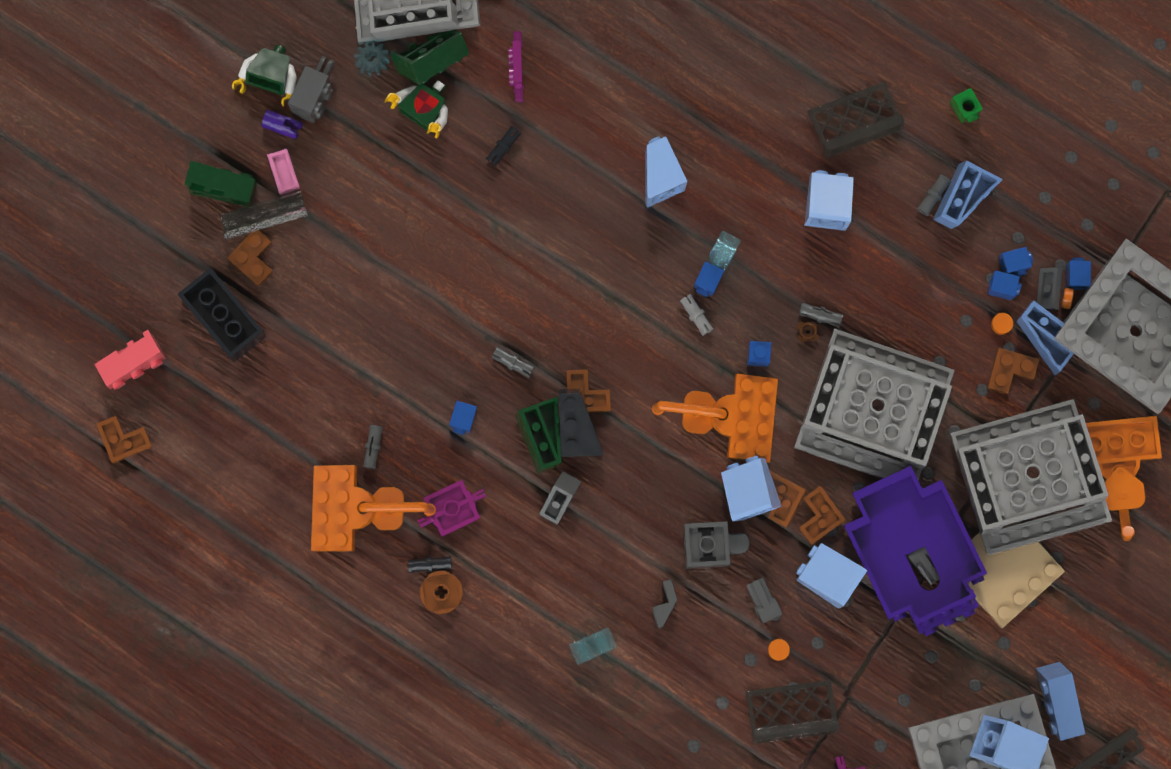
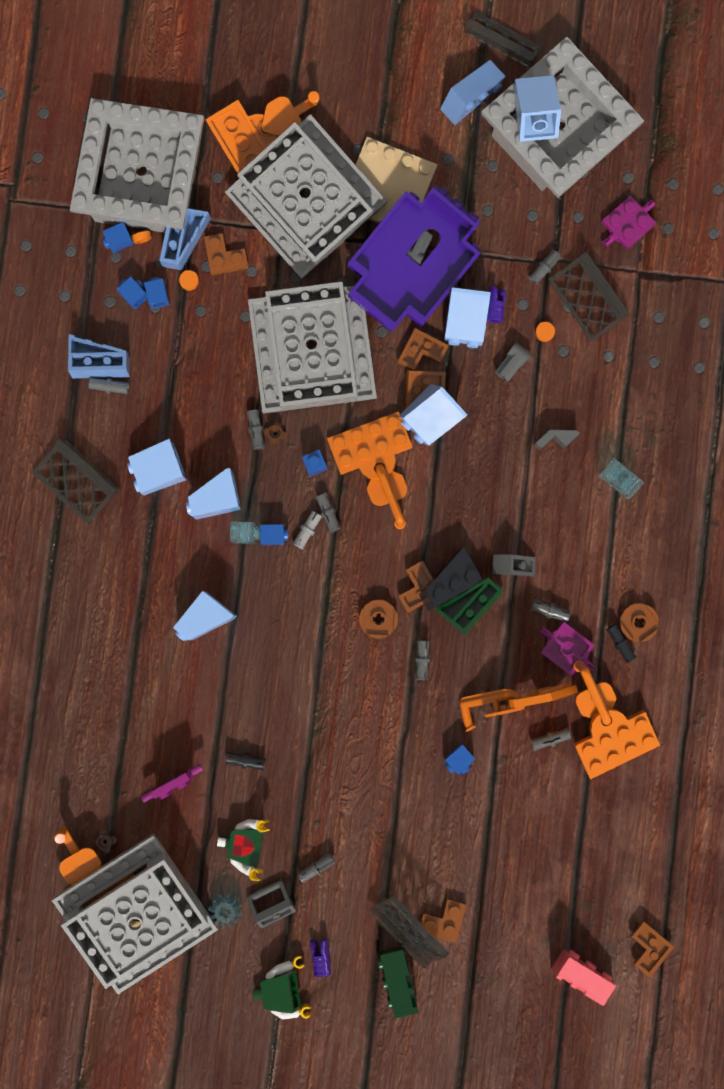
camera: 110 degrees left, 5 degrees up
(222, 315) = (507, 921): black brick -> none
(283, 171) = (359, 934): bright pink tile -> none
(312, 91) = (279, 946): dark grey brick -> none
(345, 103) = (275, 912): none -> dark grey tile
(367, 162) = (316, 868): none -> dark grey axle
(398, 348) = (459, 760): none -> blue brick
(428, 427) = (515, 700): none -> orange plate
(430, 57) = (200, 861): dark green wedge -> none
(462, 418) = (490, 677): blue brick -> none
(497, 510) = (550, 610): none -> dark grey pin
(563, 343) = (371, 610): none -> dark orange plate
(703, 344) = (328, 512): none -> dark grey pin
(711, 545) = (491, 424): dark grey brick -> none
(773, 242) = (215, 497): none -> light blue slope
(825, 610) = (496, 305): none -> dark purple hinge
(844, 683) = (544, 267): none -> dark grey axle
(970, 98) = (19, 403): green brick -> none
(1049, 288) = (141, 255): dark grey plate -> none

